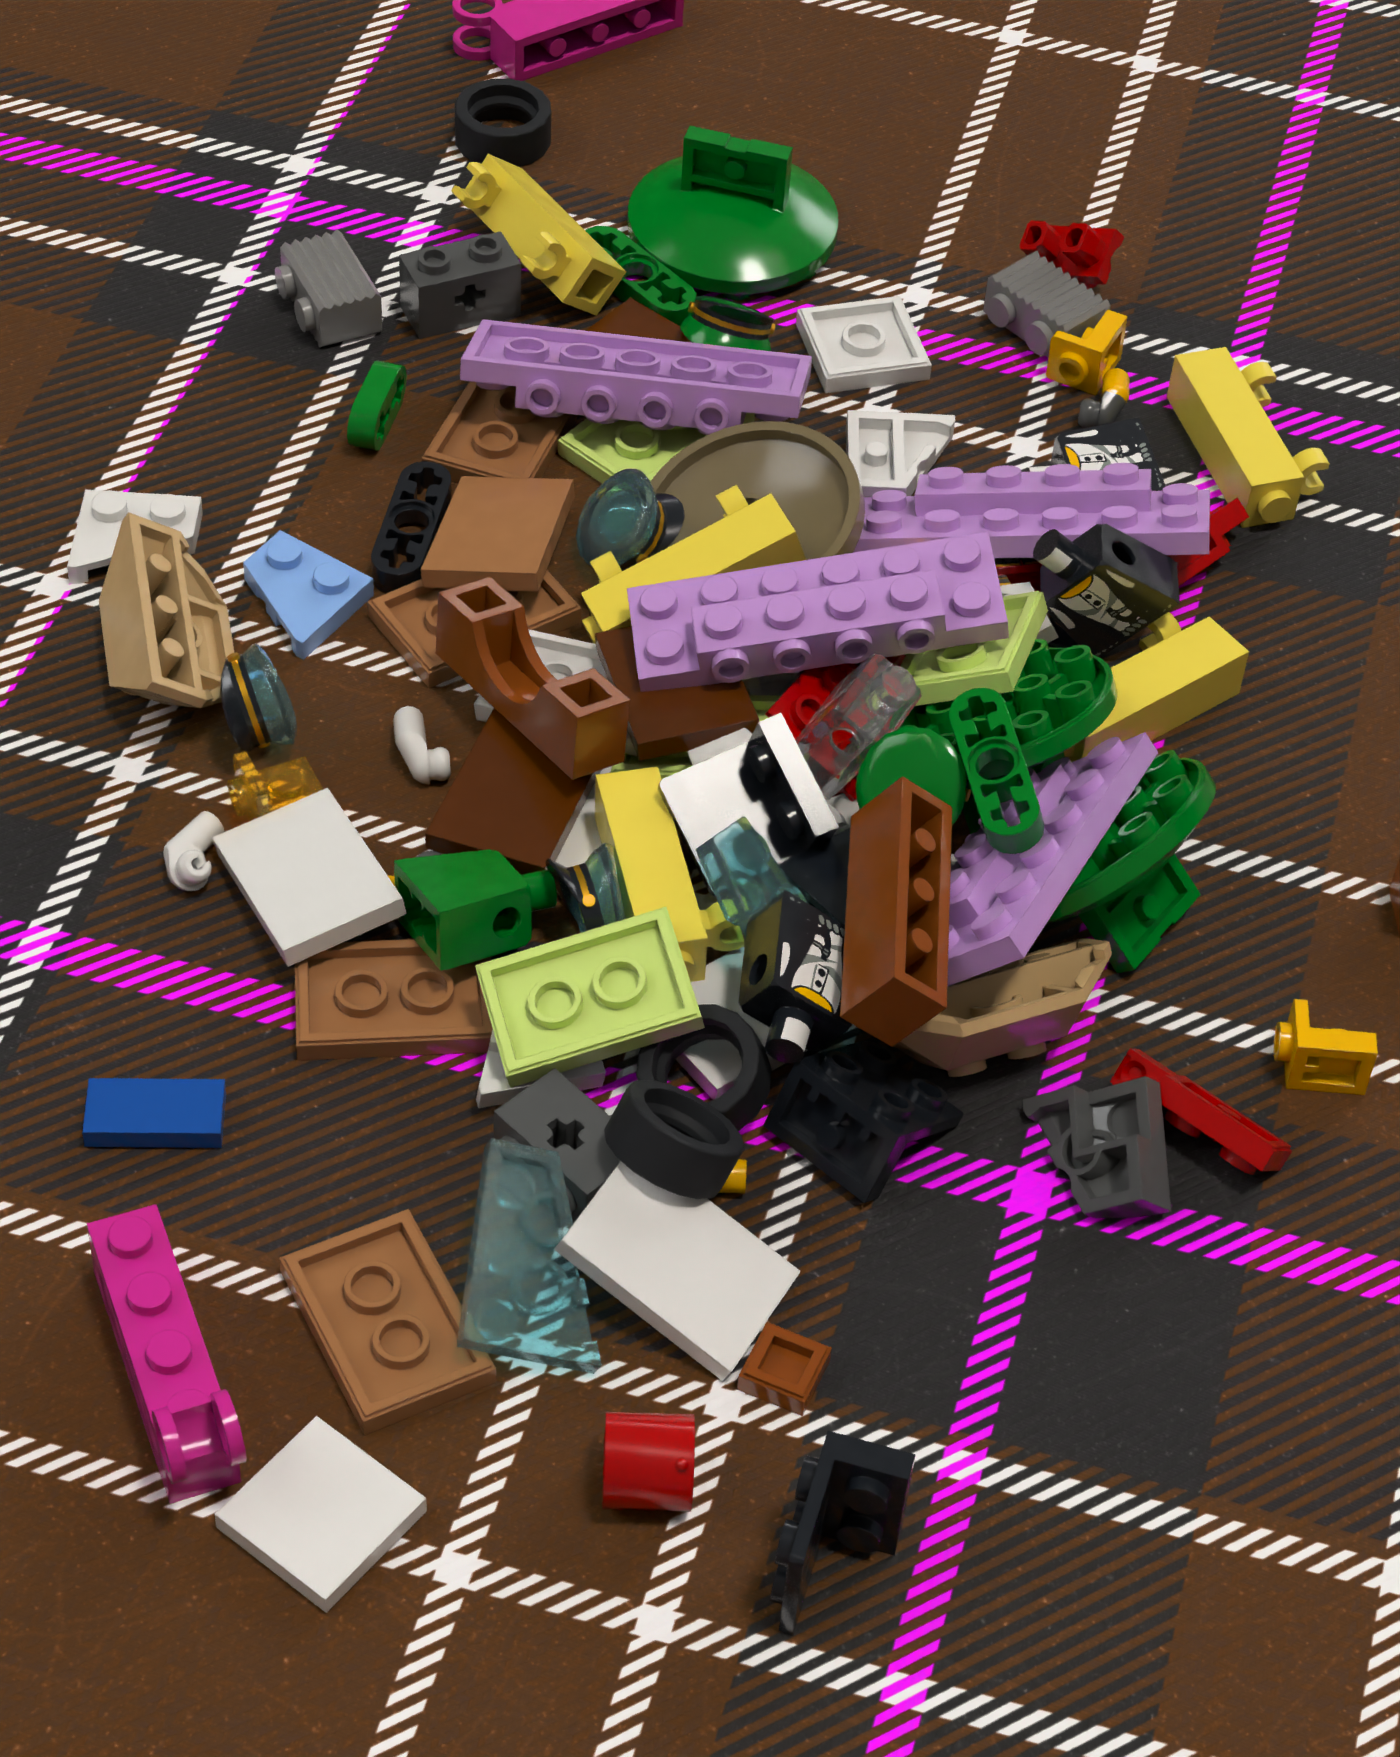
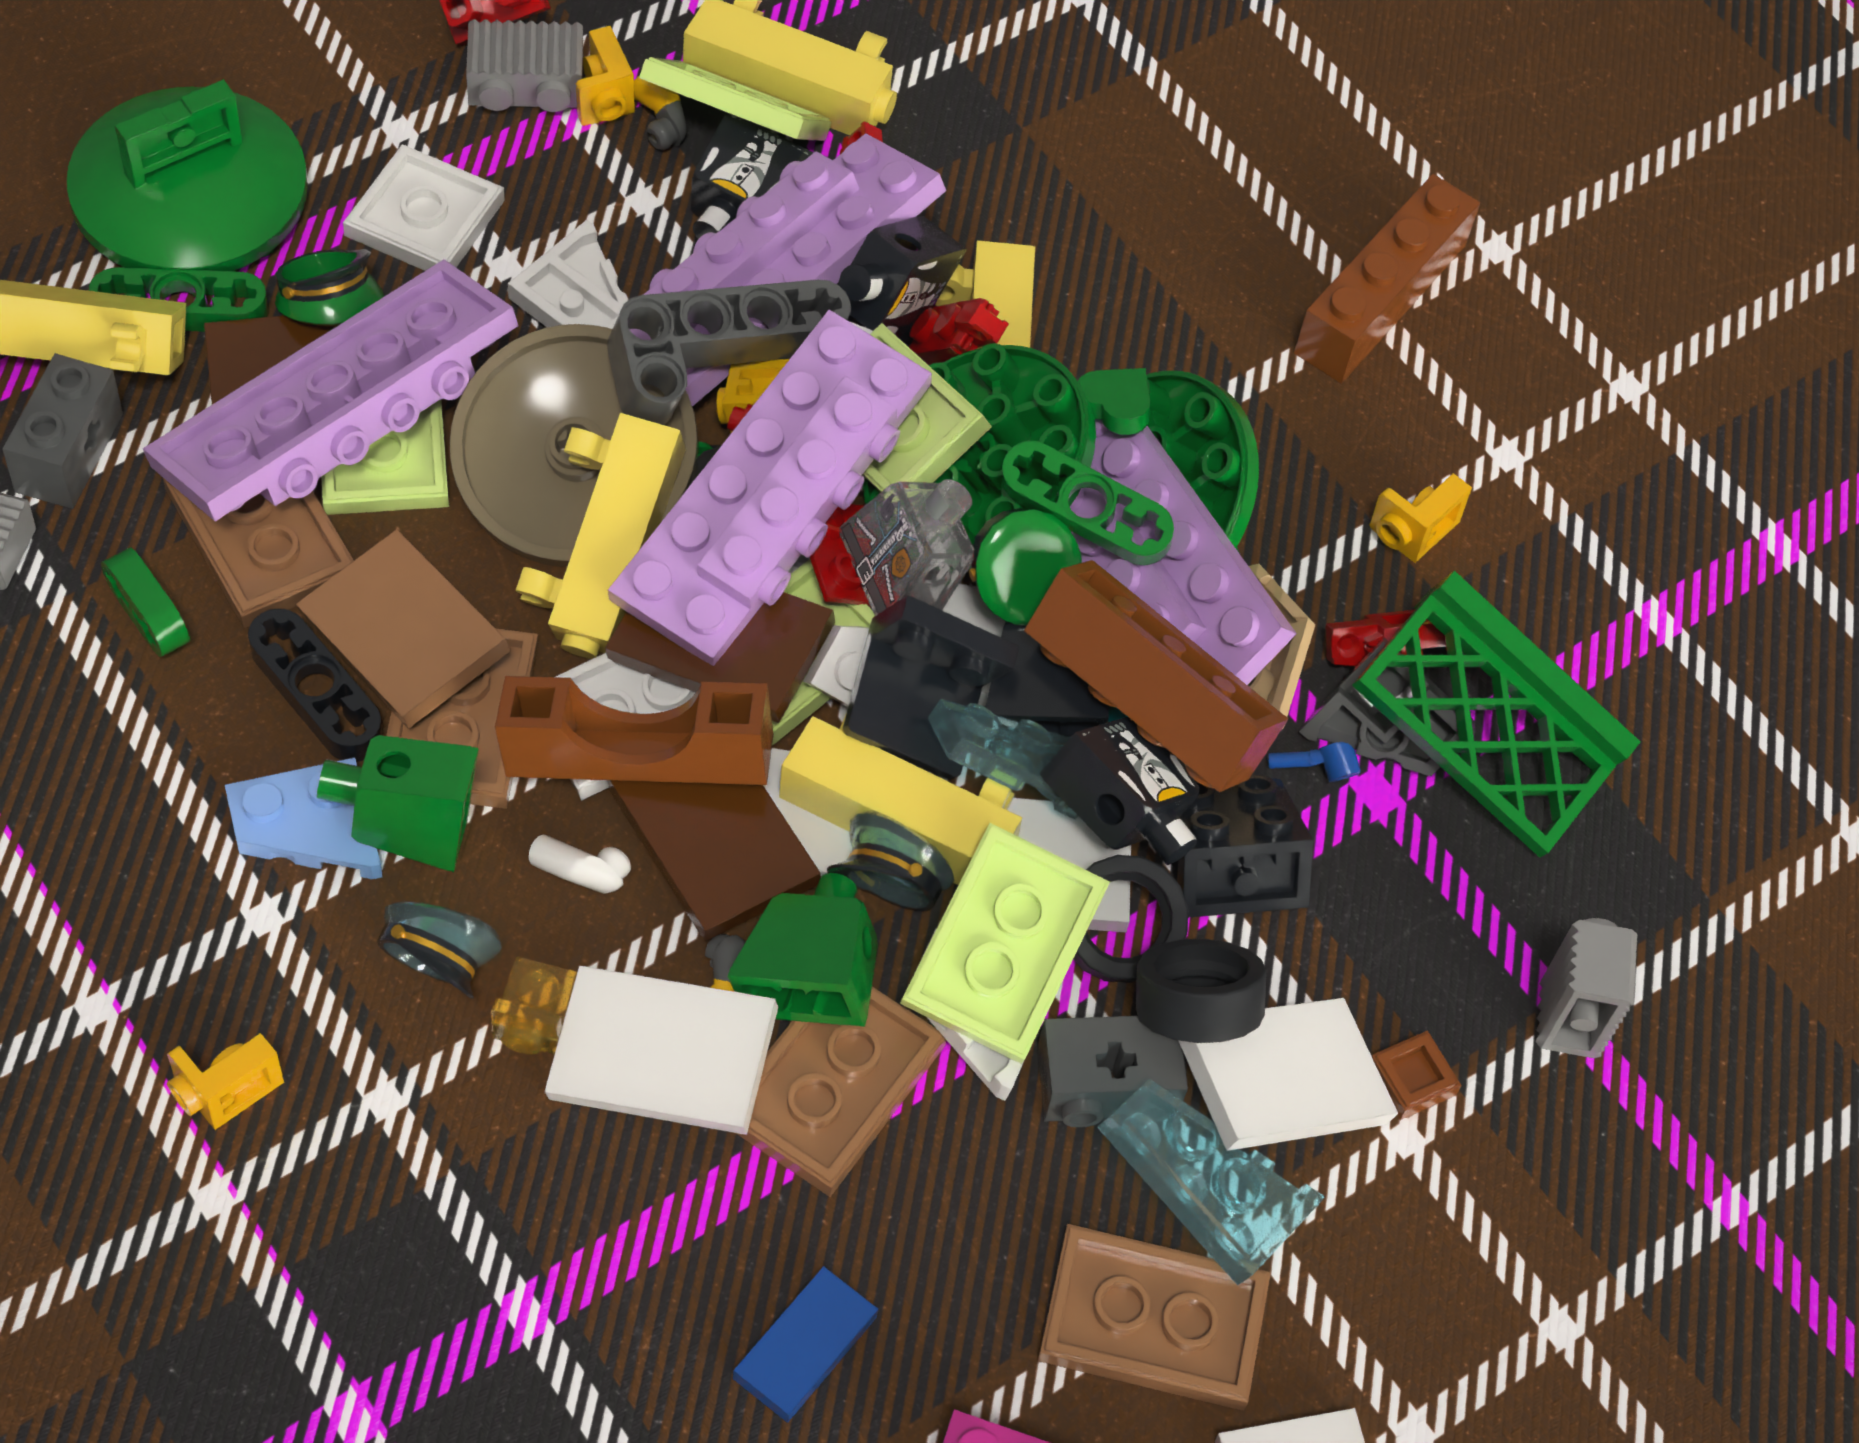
camera: 55 degrees left, 10 degrees up
(51, 670) = (230, 1085): none -> yellow bracket
(102, 518) = (97, 900): white wing -> none
(162, 619) = (270, 959): tan wedge -> none
(185, 852) = (539, 1127): white arm -> none
(356, 610) = (407, 797): none -> green torso
(628, 520) = (489, 531): clear light blue piece -> none
(648, 1461) = (1448, 1230): red piece -> none
(846, 1494) = (1602, 1162): black bracket -> none
(909, 515) = (786, 308): none -> dark grey beam
(974, 1416) = (1587, 988): none -> light grey brick
(1021, 1138) = (1337, 758): none -> blue hand
(1105, 637) = (955, 330): none -> red hinge
(1127, 741) = (1119, 398): none -> green tile
(1158, 418) = (736, 99): none -> yellowish green tile
(1228, 1190) = (1516, 670): none -> green fence

